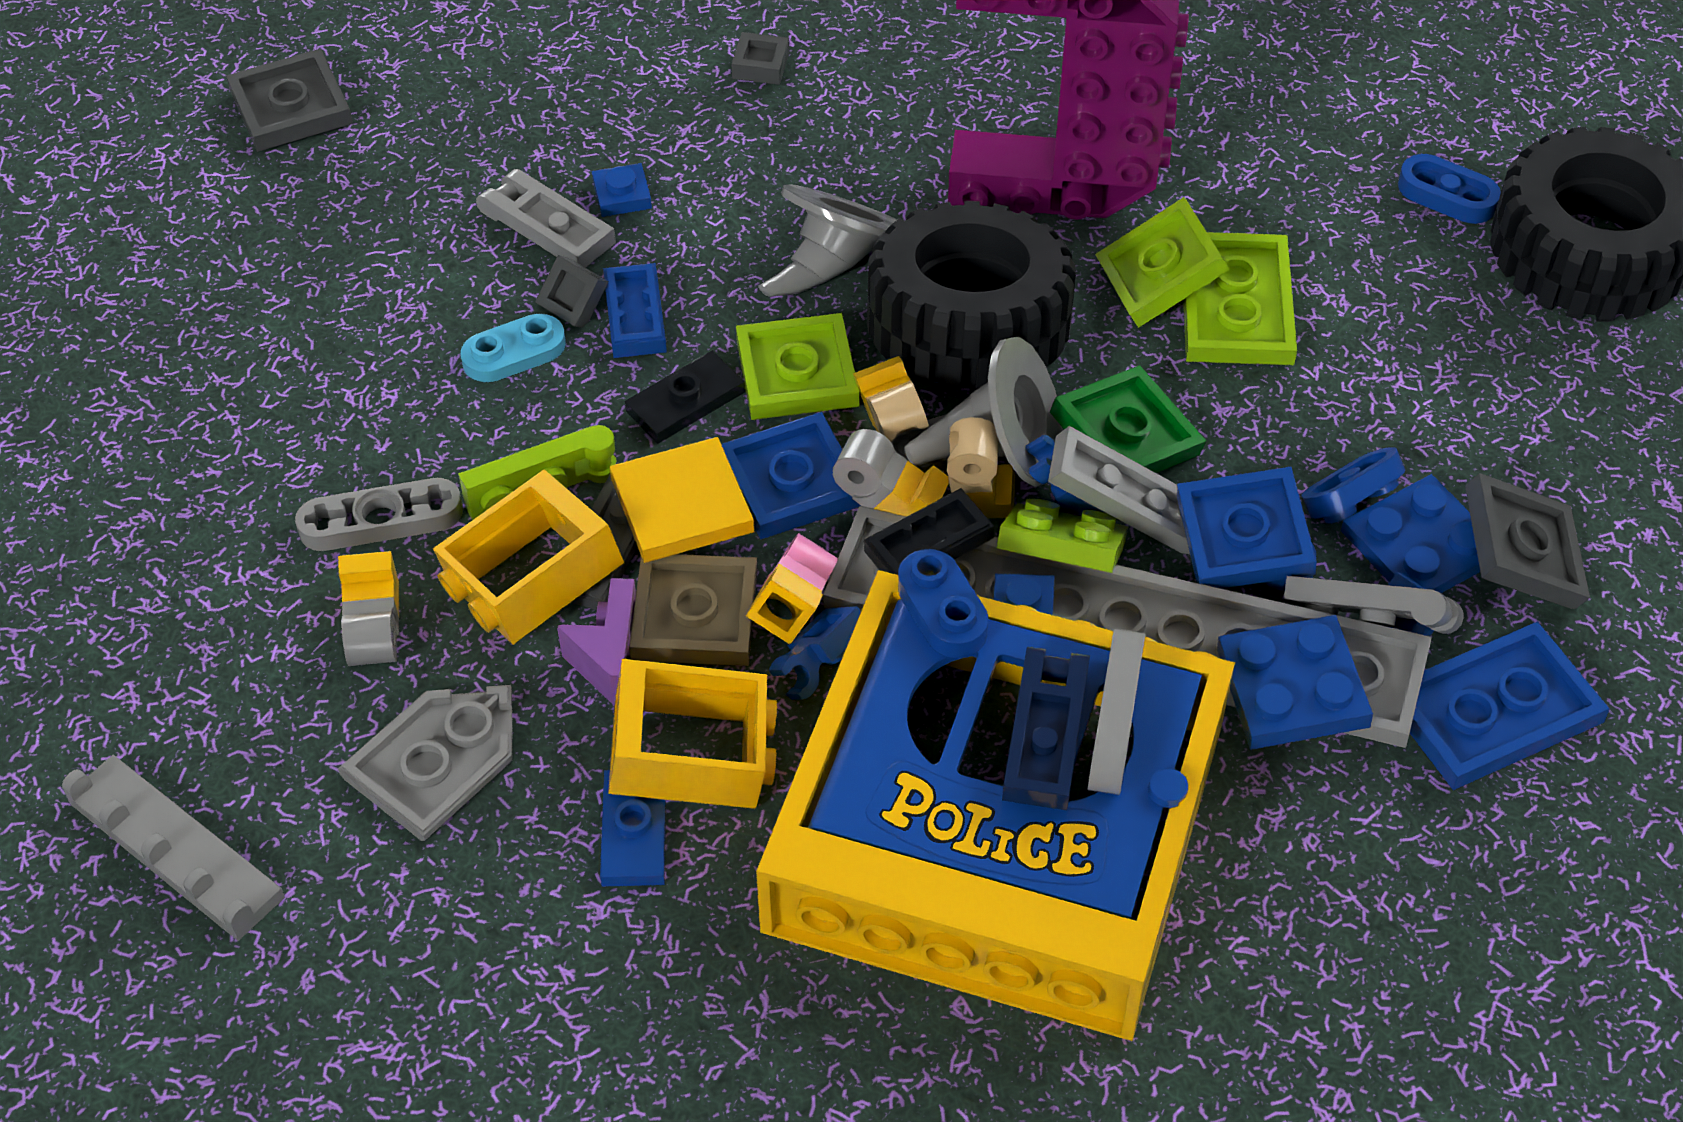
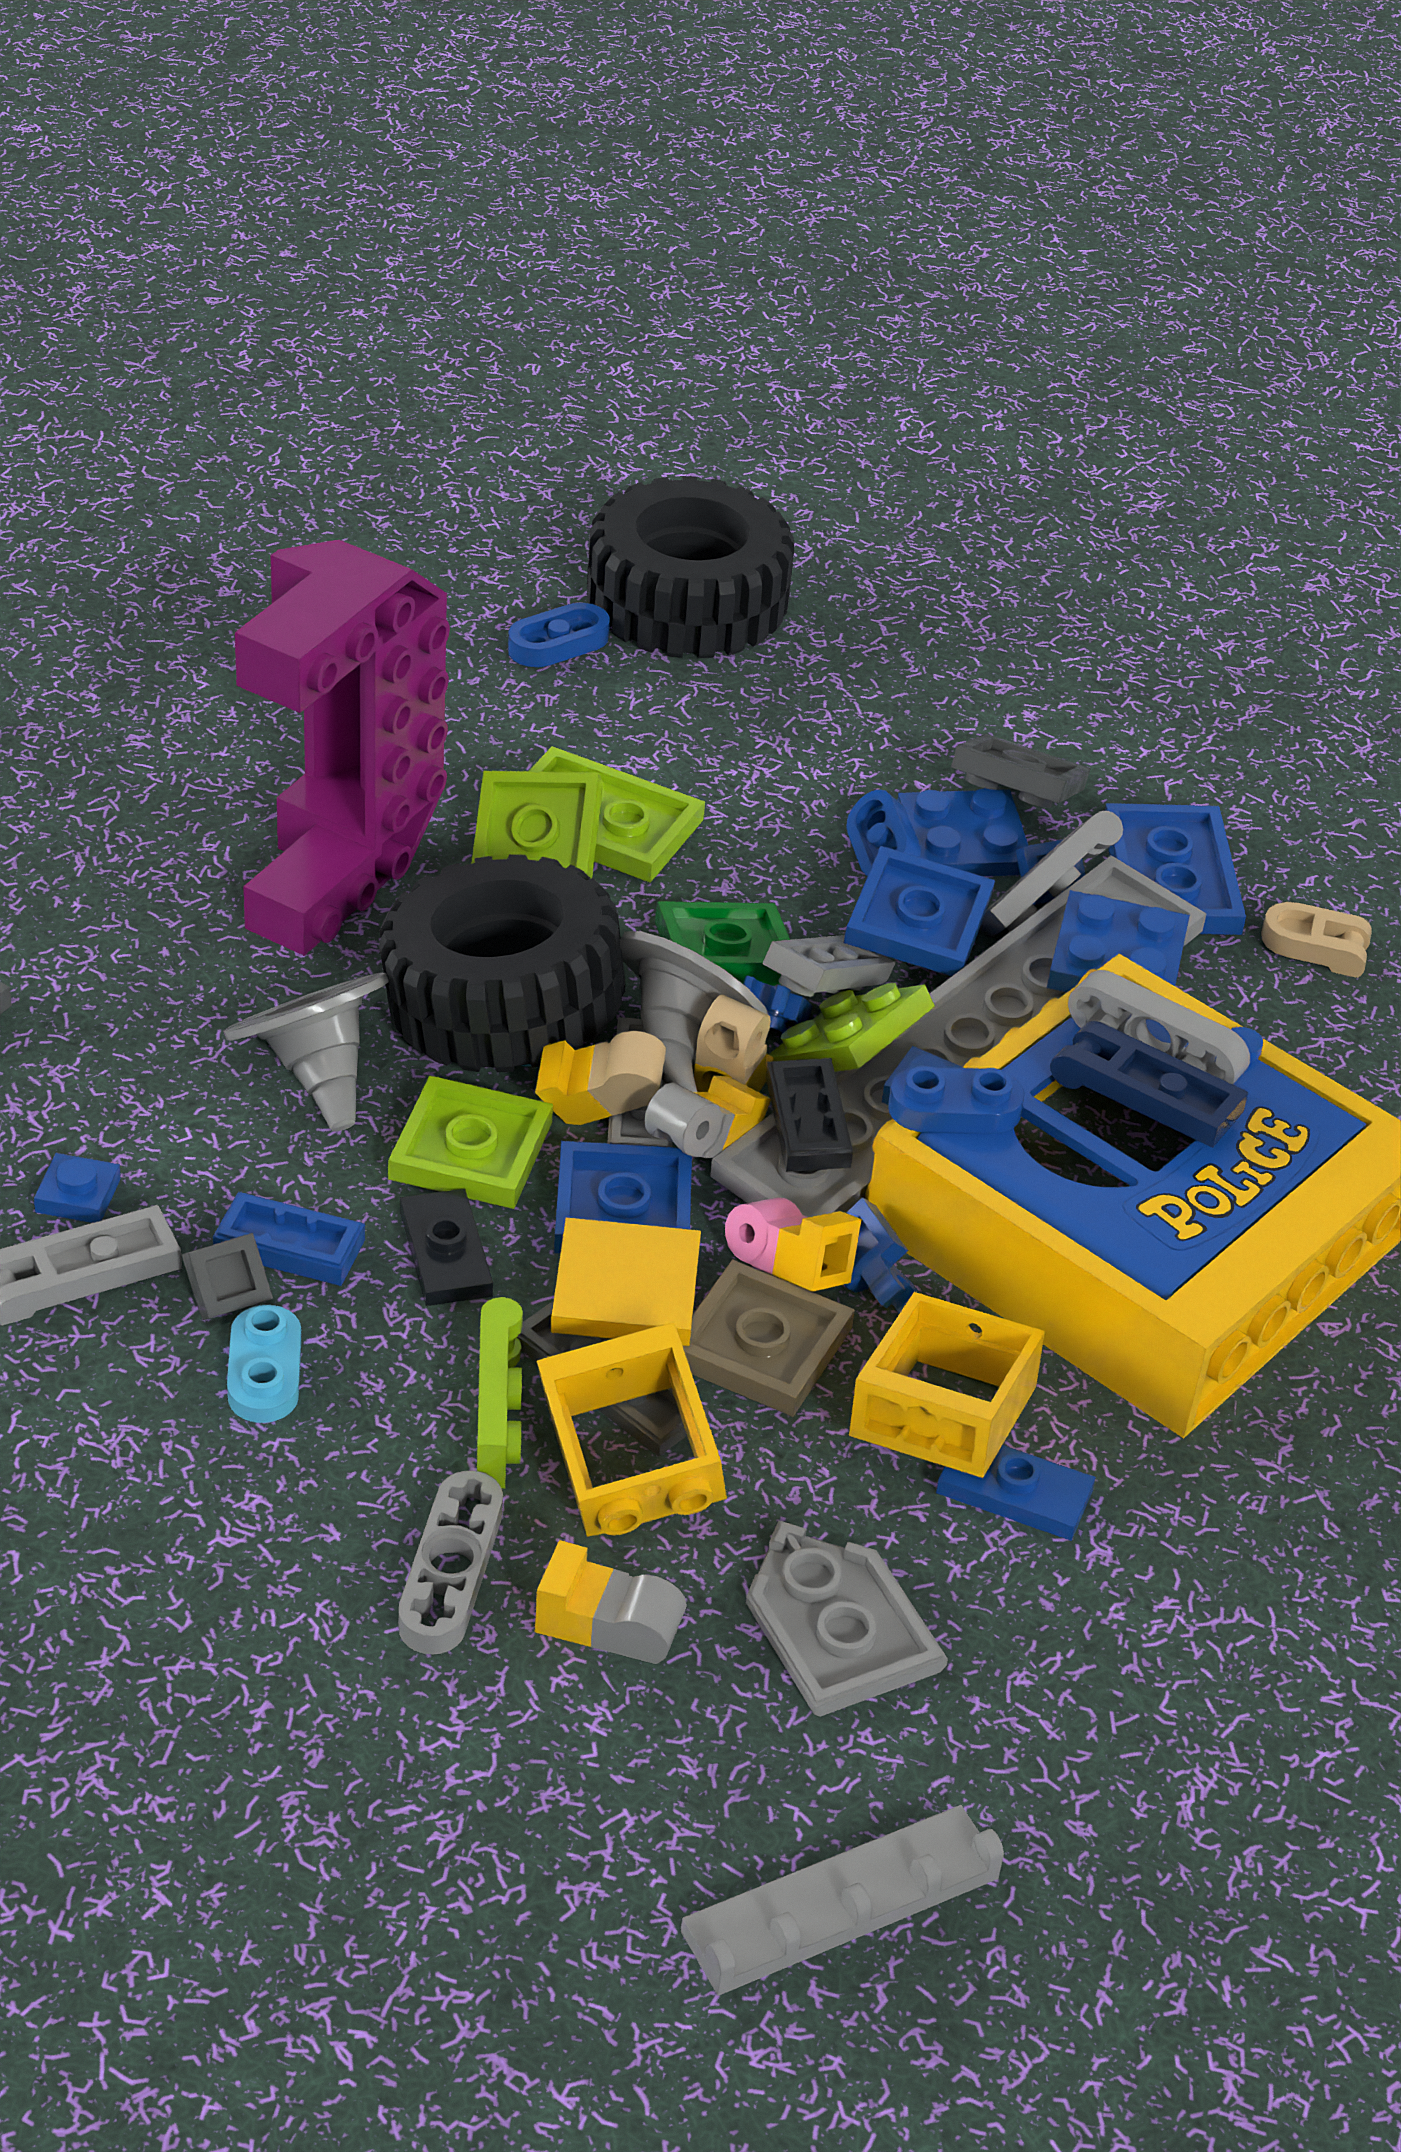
camera: 70 degrees left, 10 degrees down
(600, 648) = (788, 1416): medium lavender slope -> none
(1483, 828) = (1318, 936): none -> tan plate

